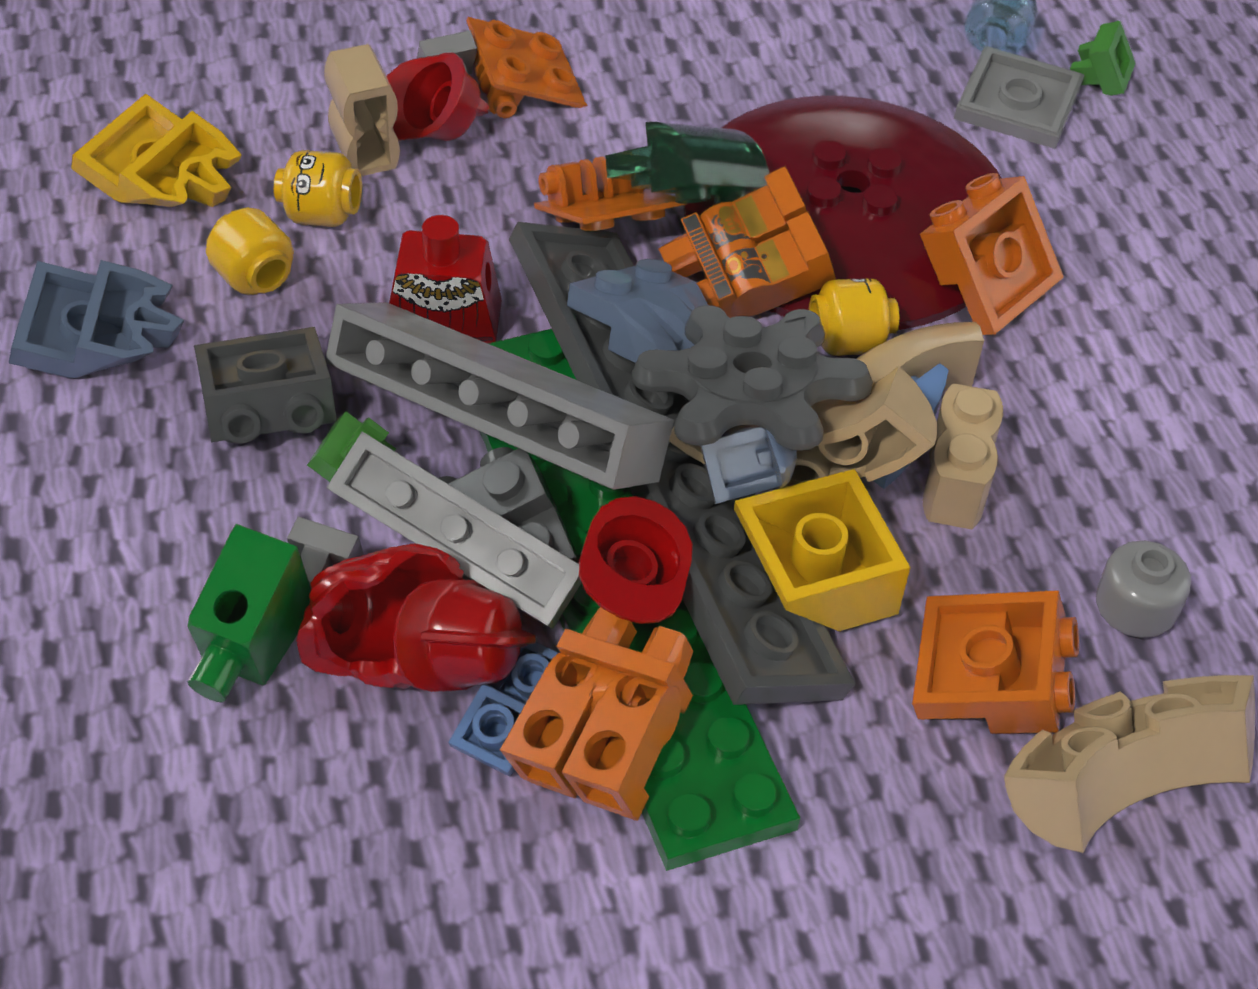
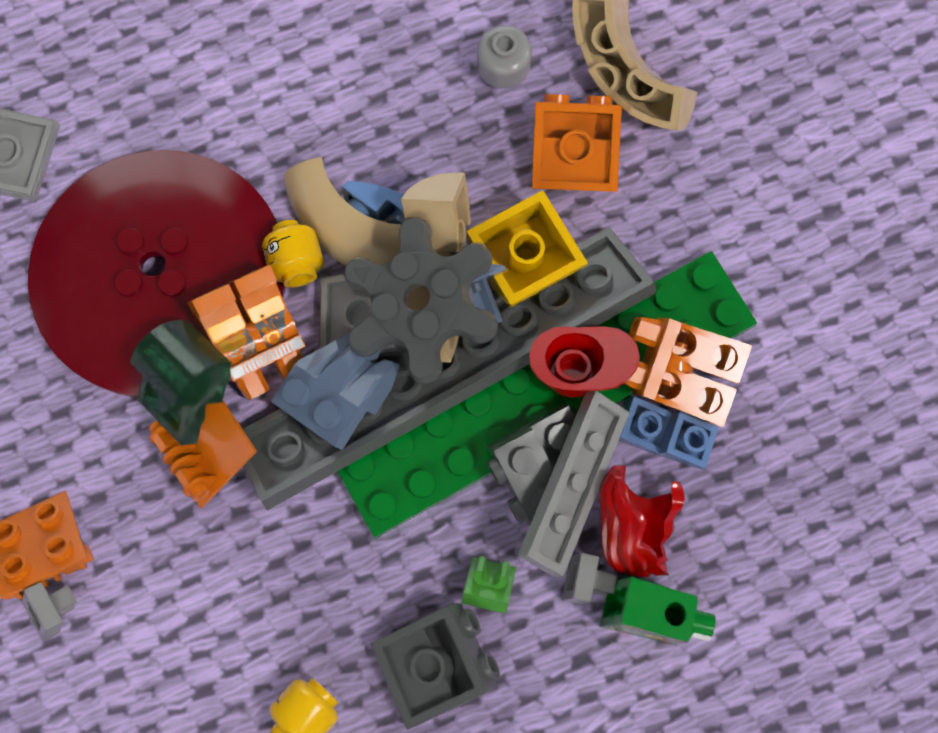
camera: 95 degrees left, 25 degrees up
(318, 188) = (223, 677): yellow head -> none
(362, 109) = (139, 659): tan brick -> none
(435, 98) = (104, 615): red piece -> none
(448, 279) = (324, 555): red torso -> none
(457, 636) = (651, 459): red piece -> none
(500, 394) = (445, 484): light grey brick -> none
(963, 456) = (401, 167): tan brick -> none
(993, 250) = (213, 159): orange plate -> none

